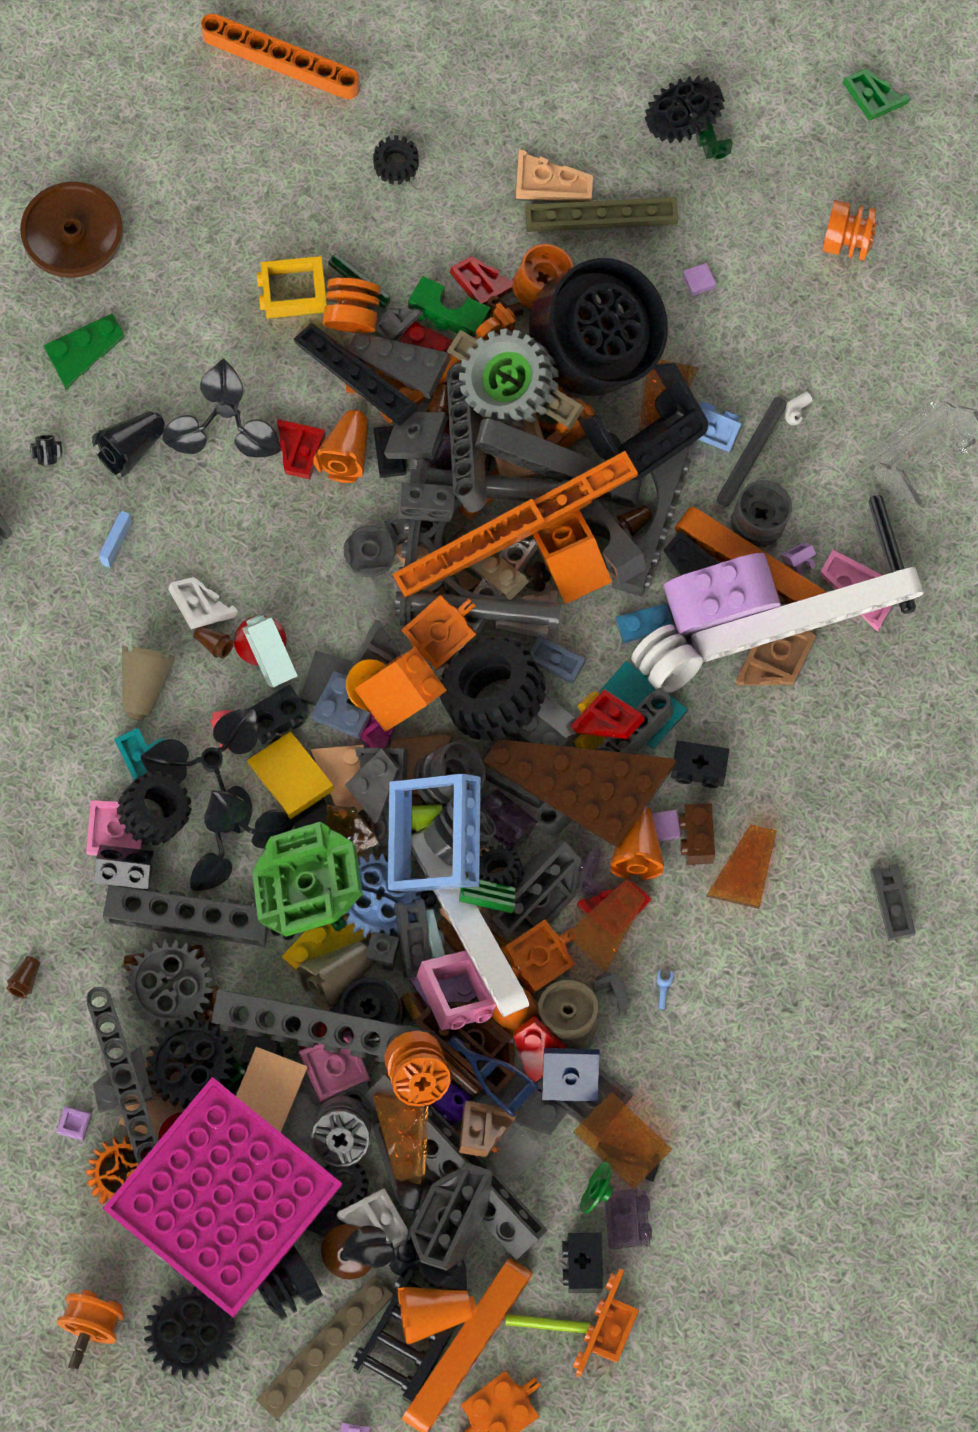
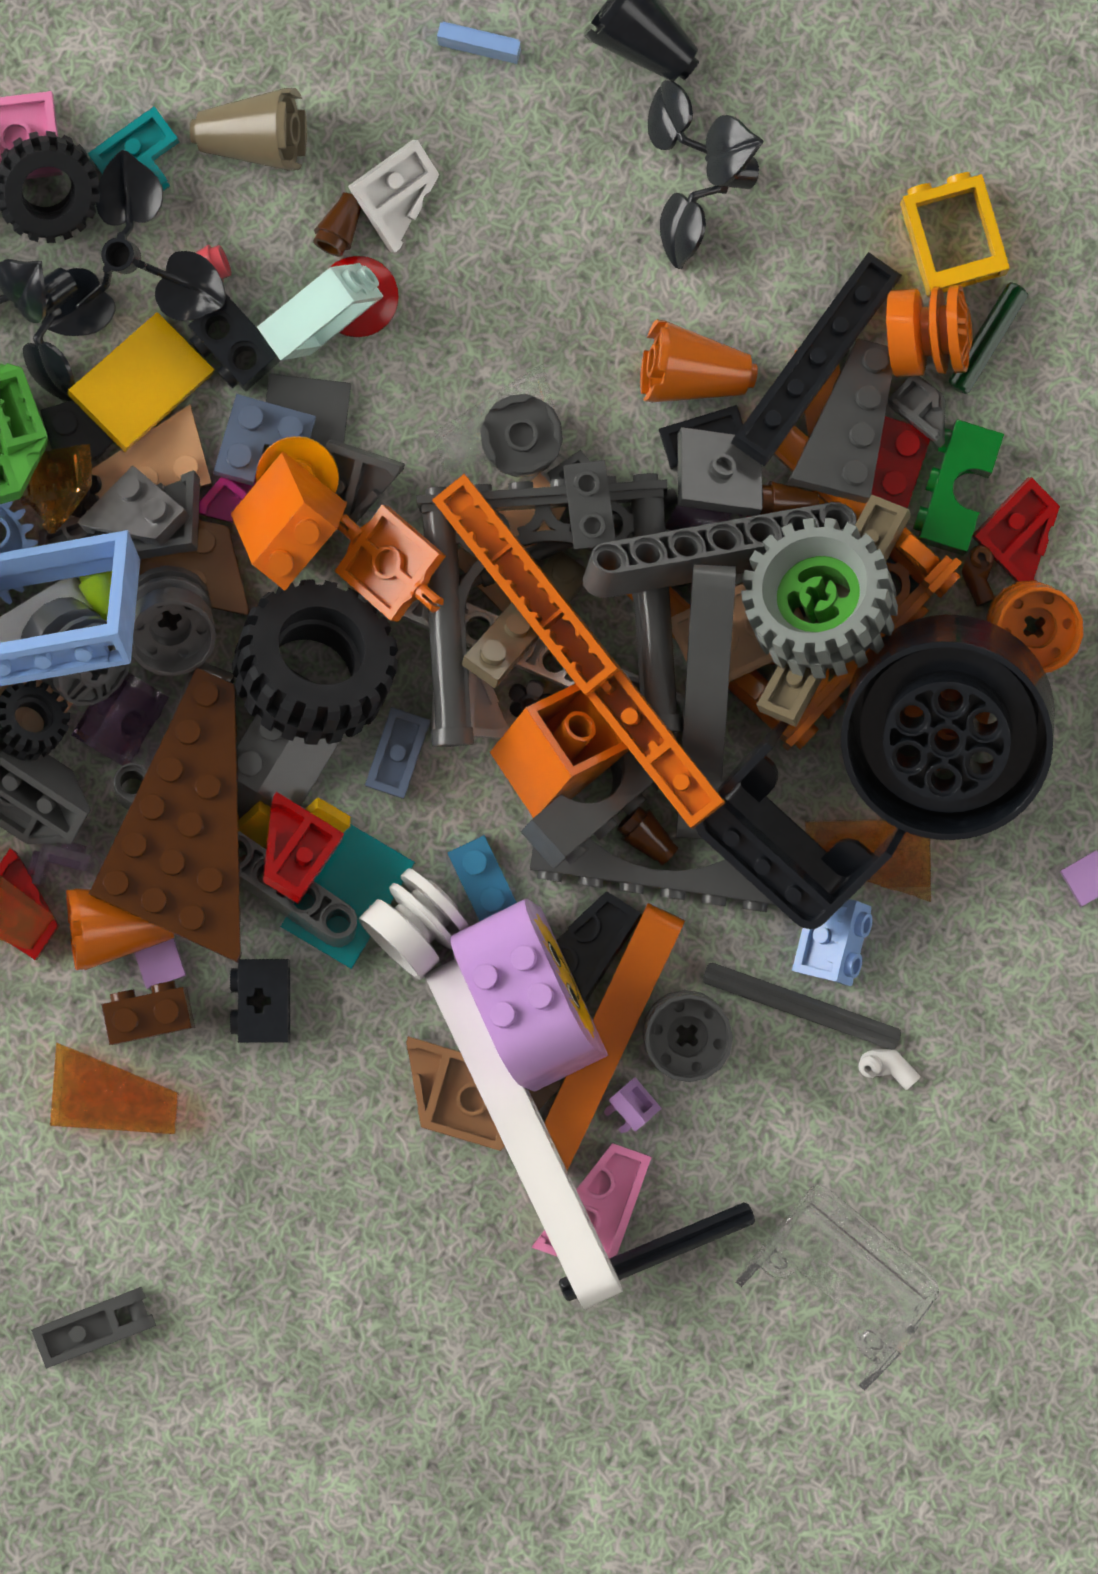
camera: 85 degrees right, 15 degrees up
(298, 447) = (682, 296): red wing -> none

